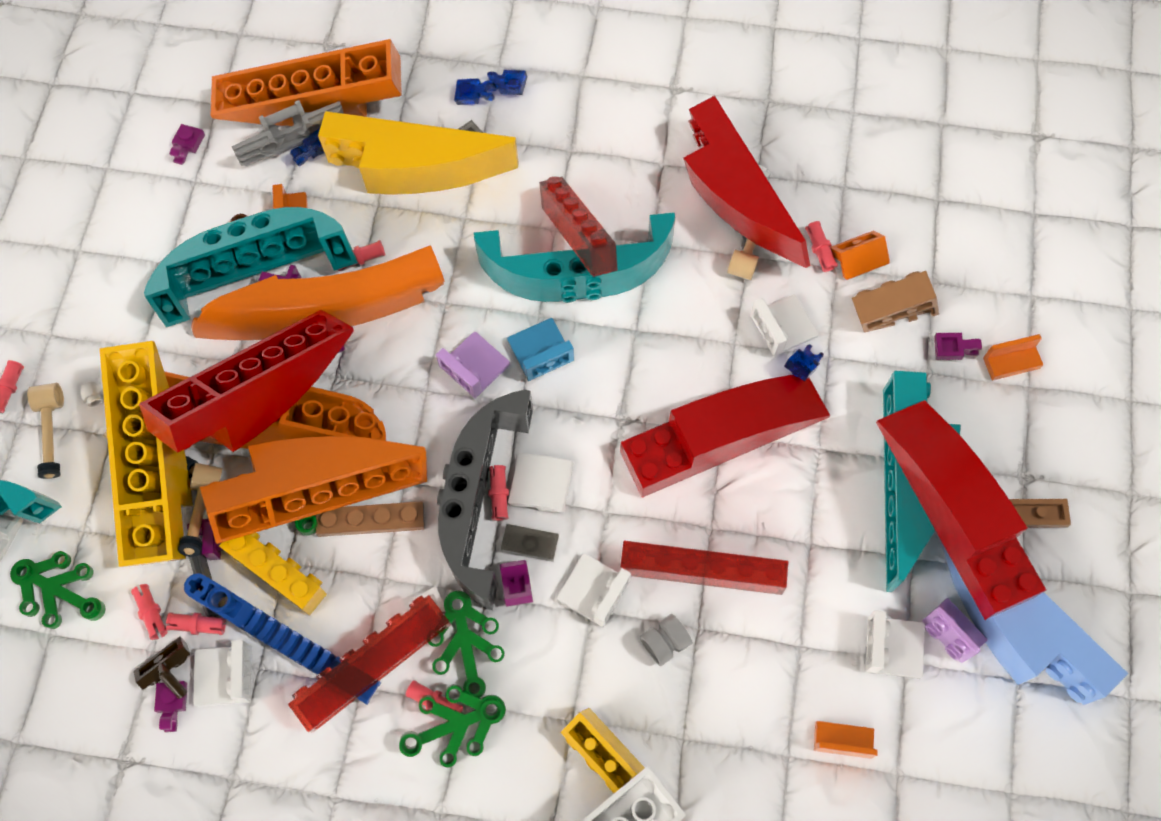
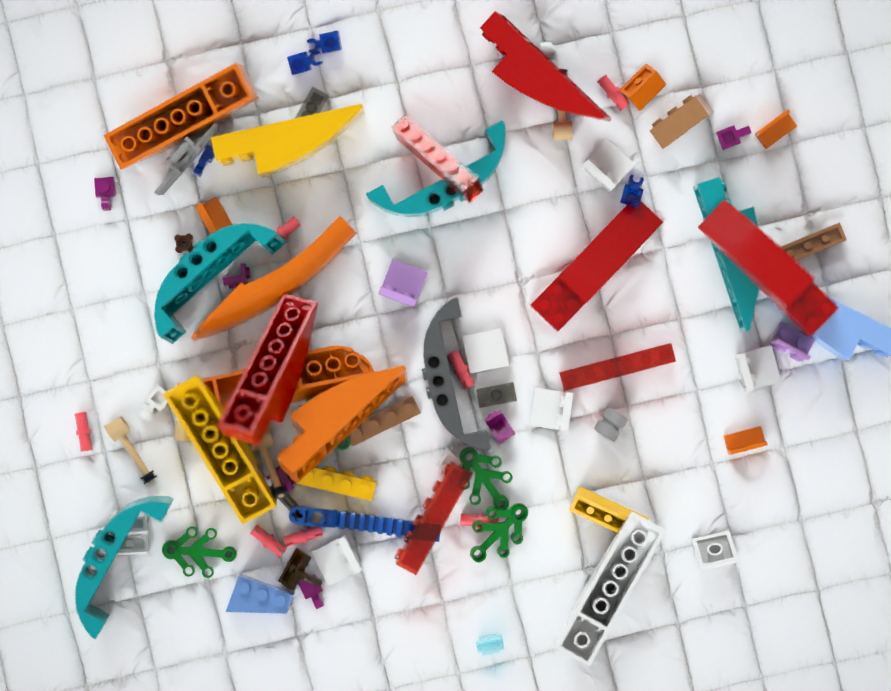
camera: 25 degrees left, 20 degrees up
(94, 679) = (258, 597): none -> medium blue wedge
(541, 349) = (444, 253): dark azure bracket -> none

